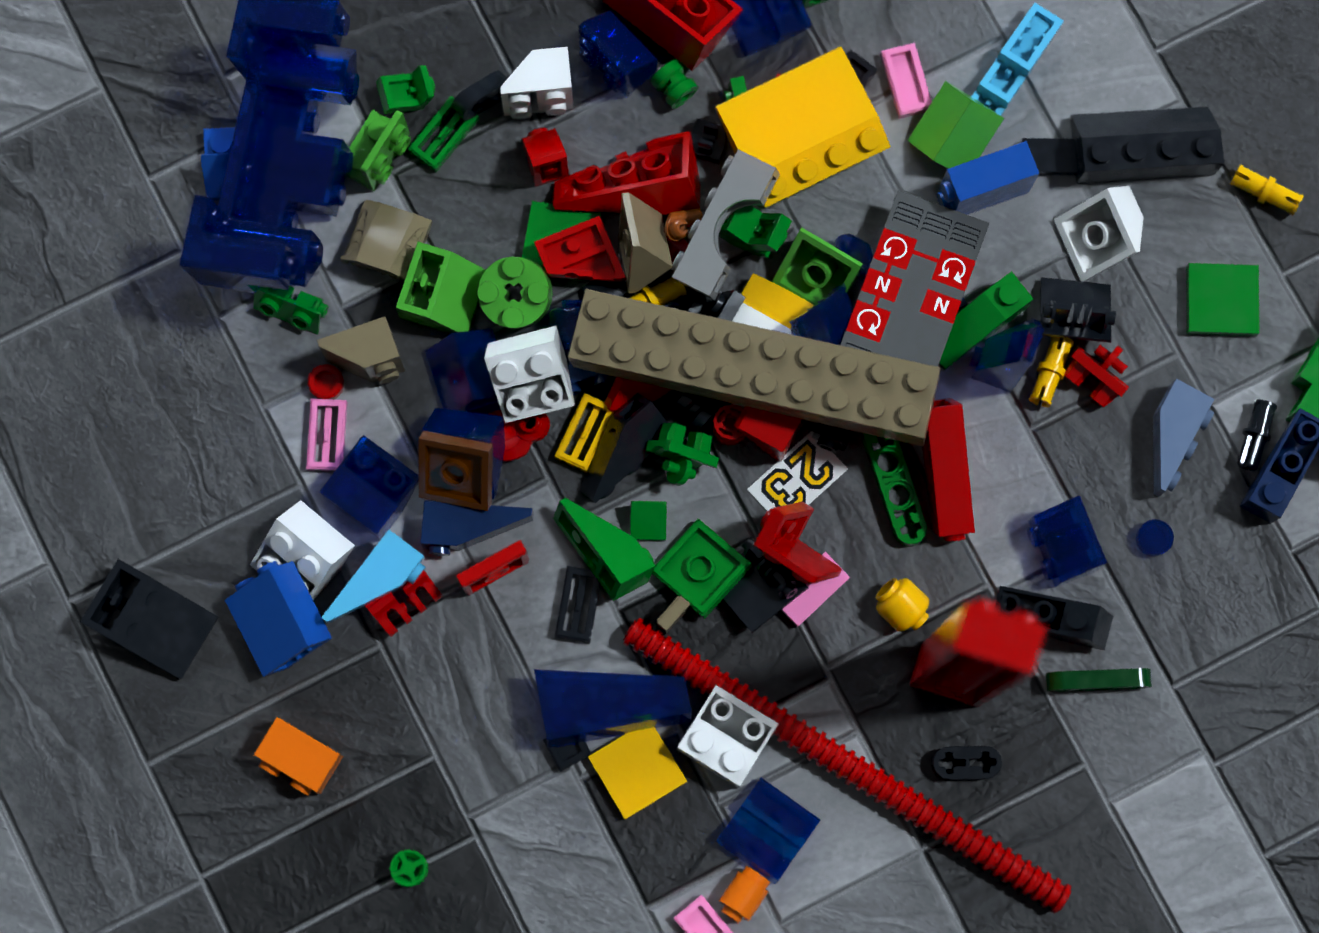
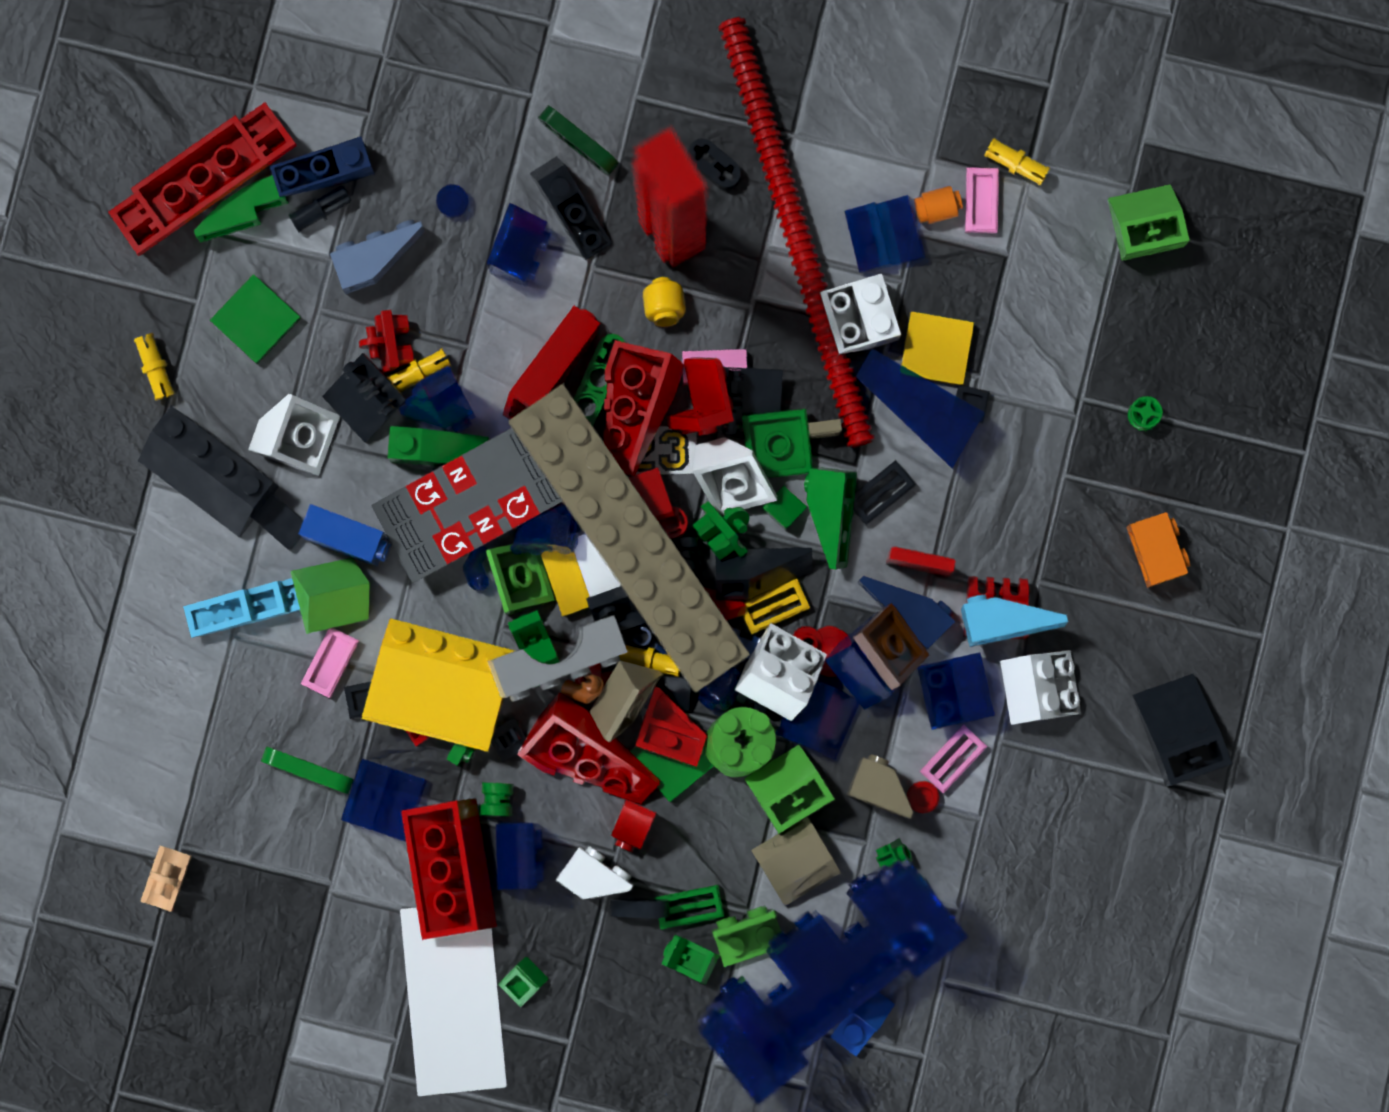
camera: 135 degrees left, 5 degrees up
(277, 617) = (1094, 654): blue brick -> none
(717, 502) = (731, 475): none -> white slope
(849, 499) = (638, 397): none -> red wedge

